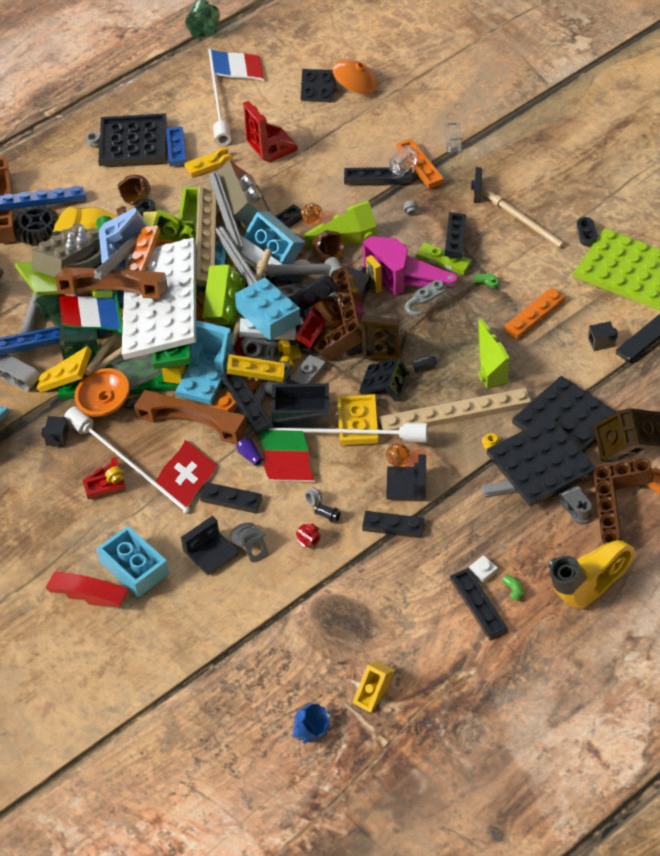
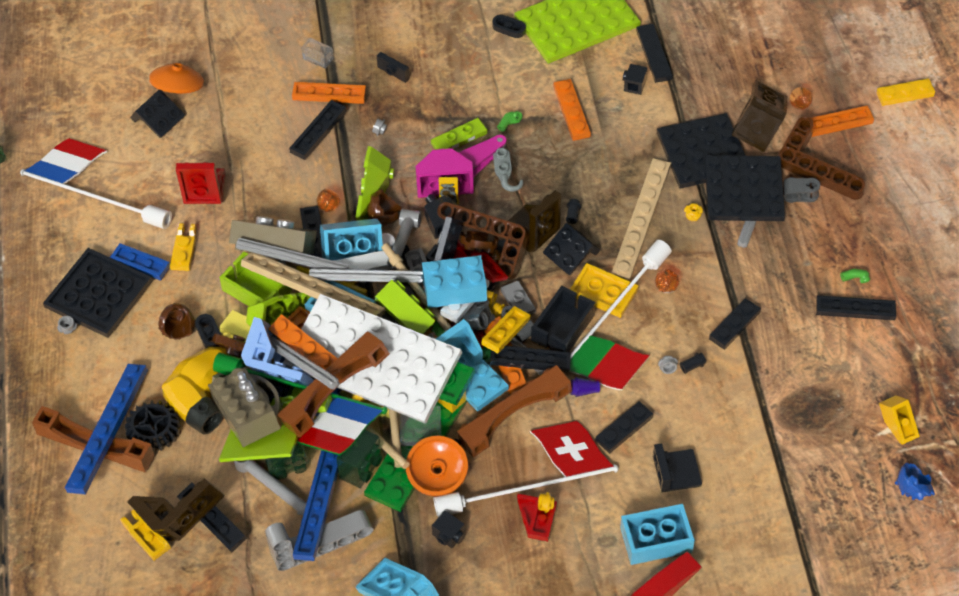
camera: 60 degrees left, 5 degrees up
(66, 371) = (385, 485): yellow wing -> none
(245, 535) = (684, 433): dark grey piece -> none
(308, 535) = (712, 388): red gear -> none
(403, 160) = (324, 99): clear piece -> none
(407, 482) = (700, 287): black bracket -> none
(455, 235) = (444, 112): black plate -> none
(483, 569) = (823, 286): white plate -> none
(492, 357) = (608, 162): lime wedge -> none
(499, 202) = (421, 64): tan bar -> none
(587, 578) = (887, 219): yellow piece -> none

